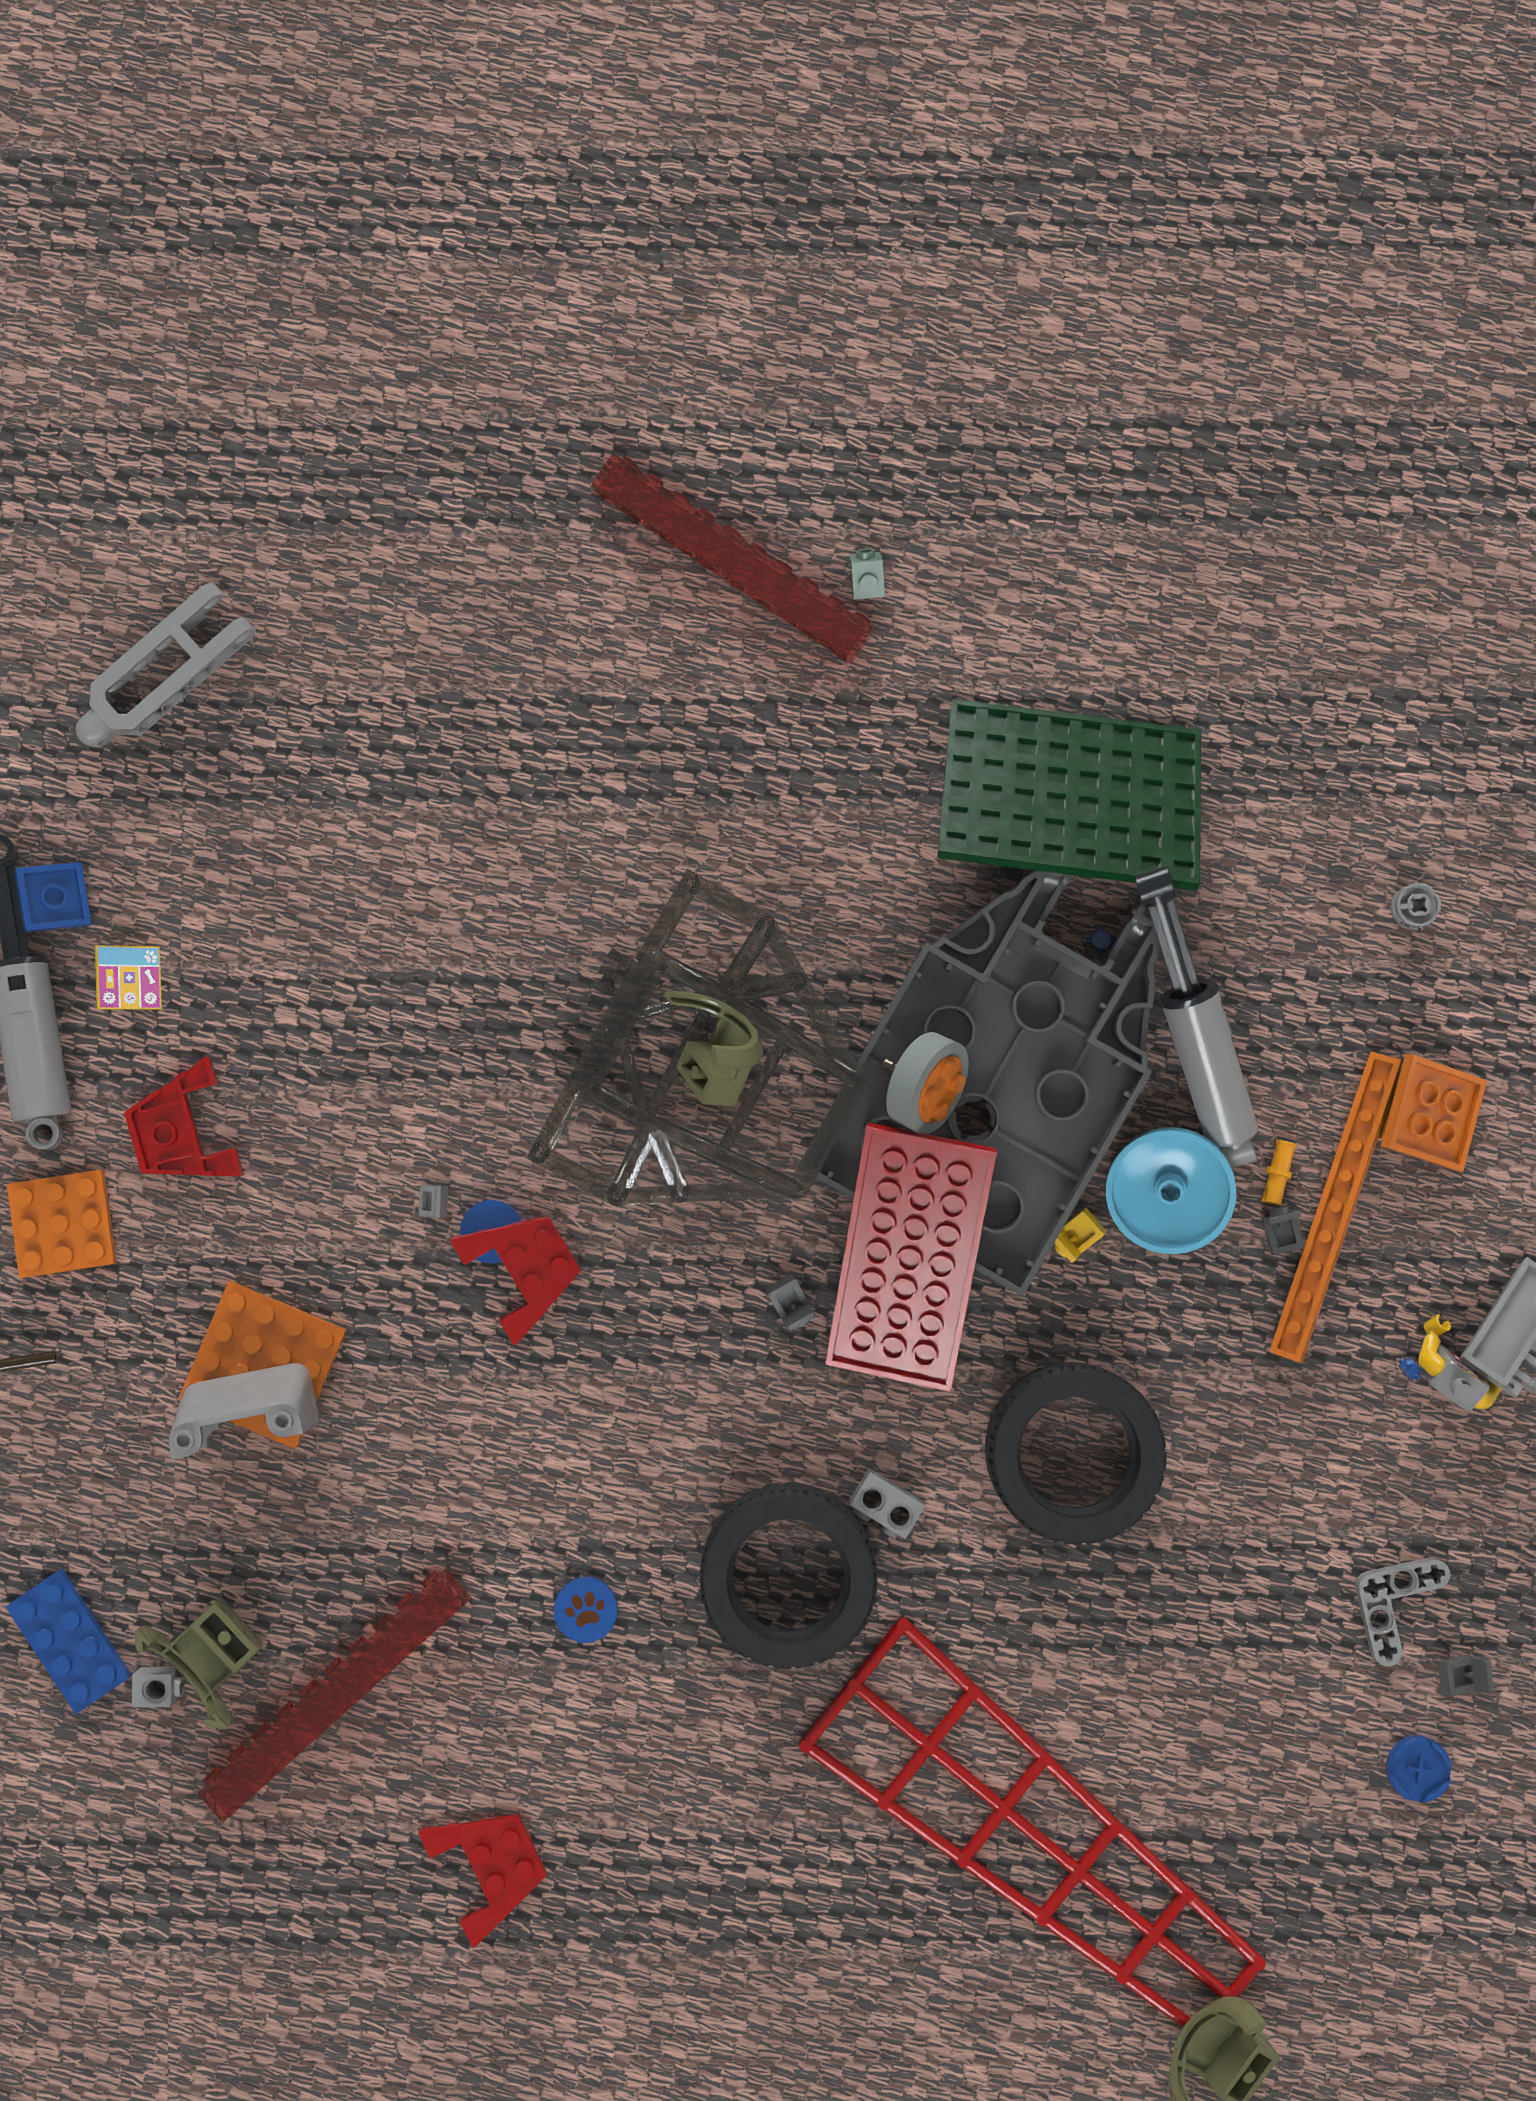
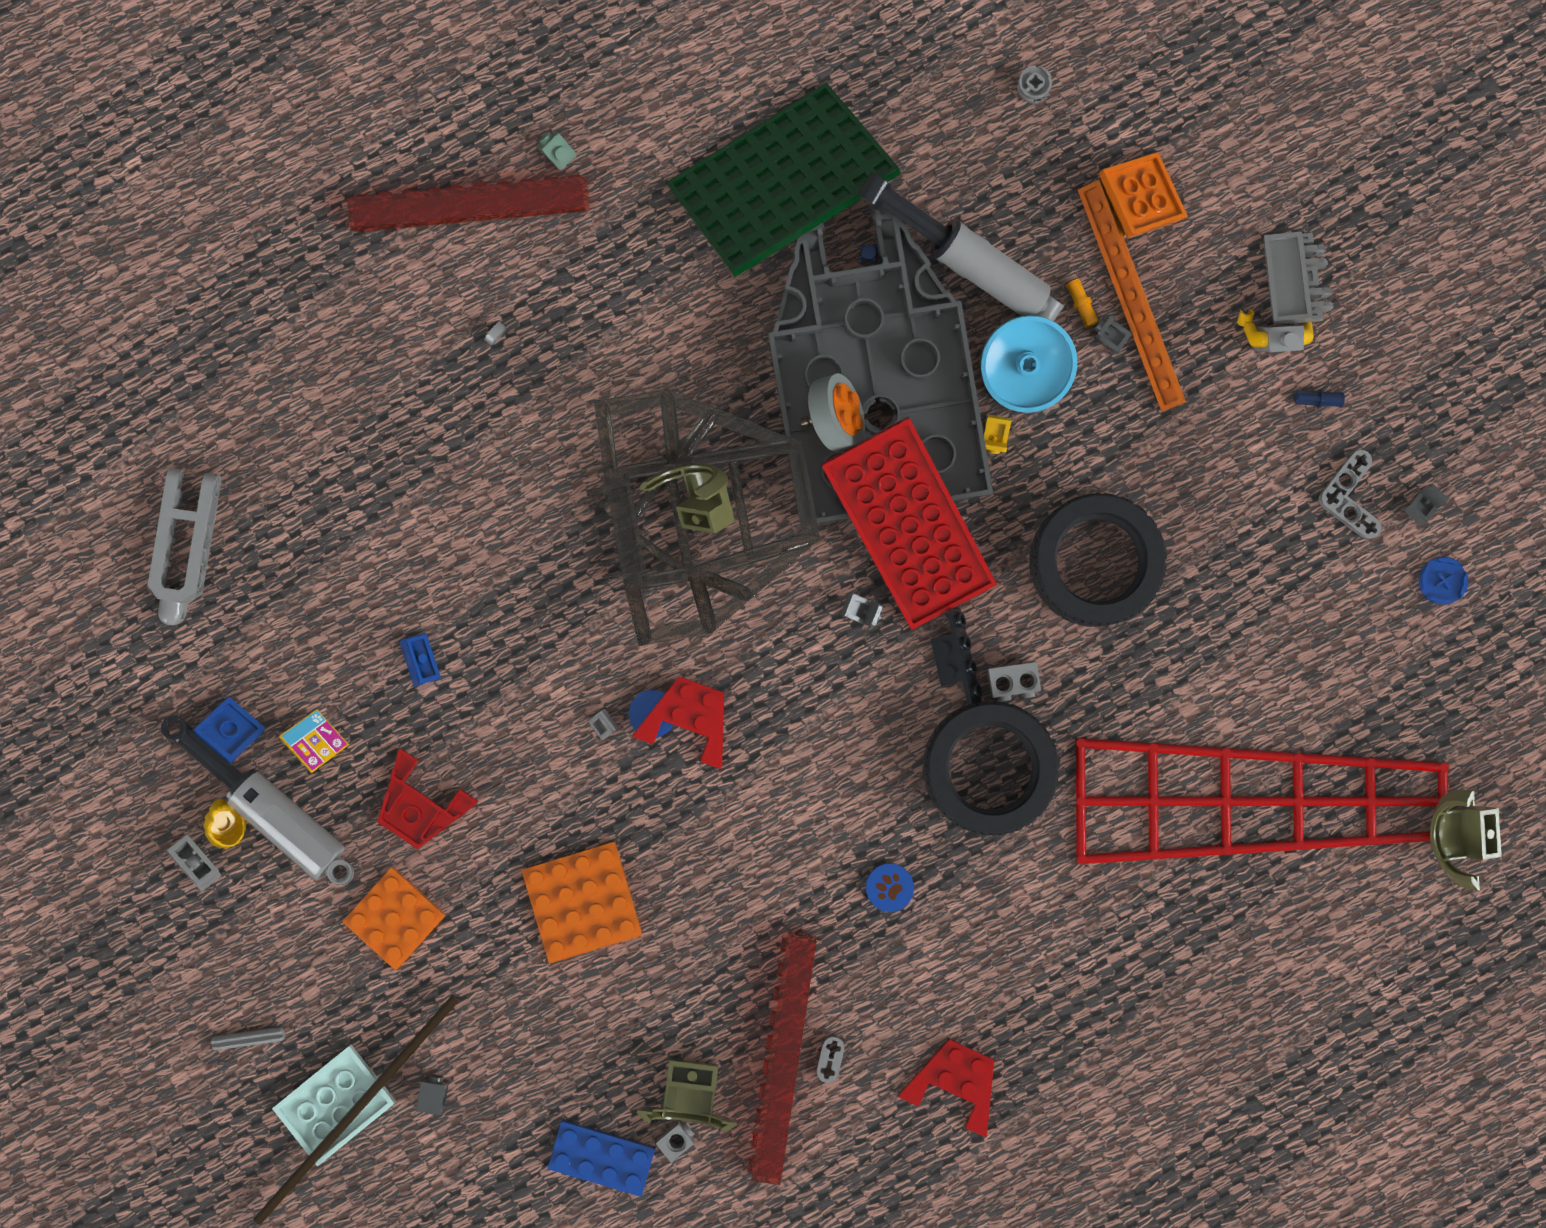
camera: 40 degrees left, 0 degrees up
(278, 1392) = (605, 904): light grey windscreen -> none
(303, 982) = (420, 659): none -> blue slope
(385, 1740) = (824, 1058): none -> light grey beam
(650, 712) = (495, 333): none -> light grey tile
(845, 1430) = (955, 658): none -> black bracket
(1410, 1369) = (1250, 354): blue piece -> none
(1445, 1473) = (1319, 398): none -> dark blue axle

